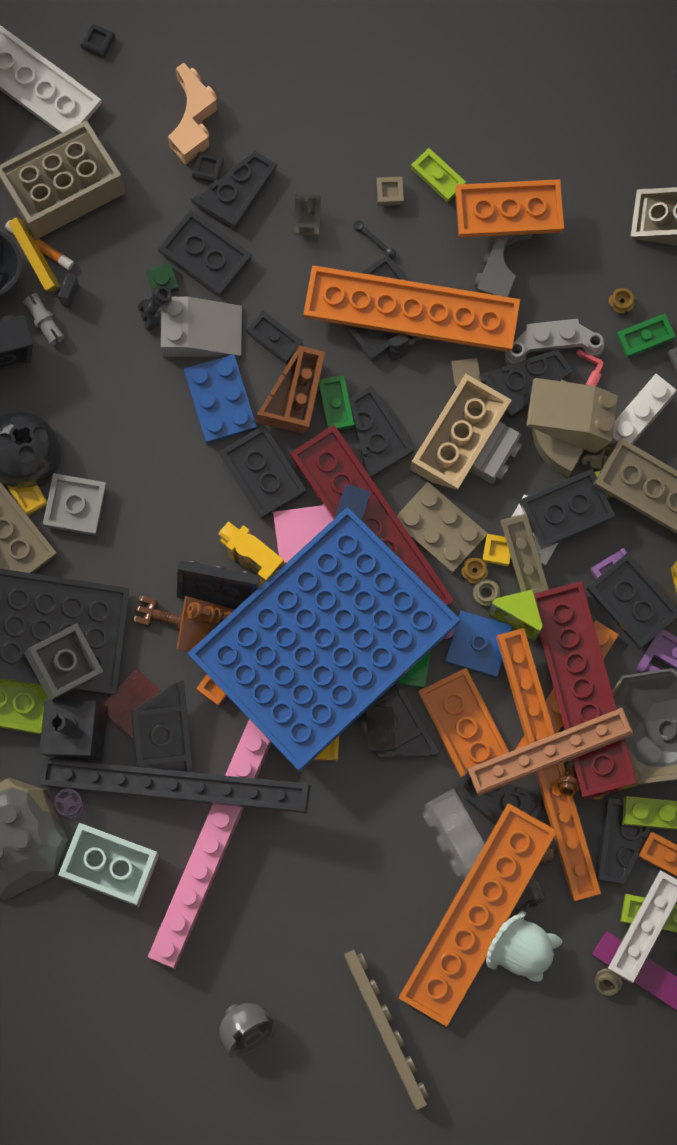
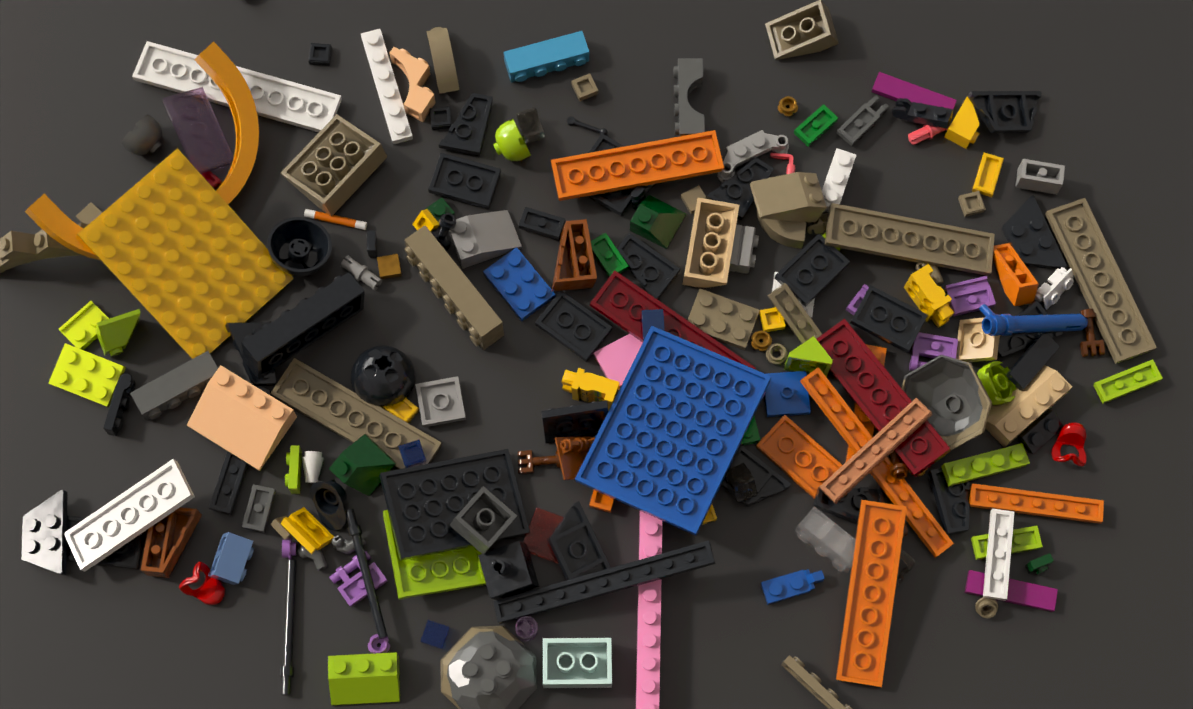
camera: 20 degrees left, 5 degrees down
(17, 553) = (412, 453): none -> clear blue tile
(34, 255) = (336, 227): yellow tile -> none
(78, 323) = (389, 266): none -> pearl gold tile
(139, 287) = (426, 219): none -> yellow plate
(141, 383) = (454, 288): none -> dark tan brick
(159, 106) = (386, 86): none -> white plate
(234, 98) = (443, 60): none -> dark tan arch
(275, 226) = (510, 142): none -> lime cylinder
(359, 138) = (546, 56): none -> dark azure brick
(391, 869) = (790, 585): none -> blue hinge
(410, 382) = (656, 221): none -> dark green slope
(437, 174) = (615, 63): lime plate -> none
(509, 208) = (680, 67): orange plate -> none
(523, 948) = (915, 606): light aqua hair -> none

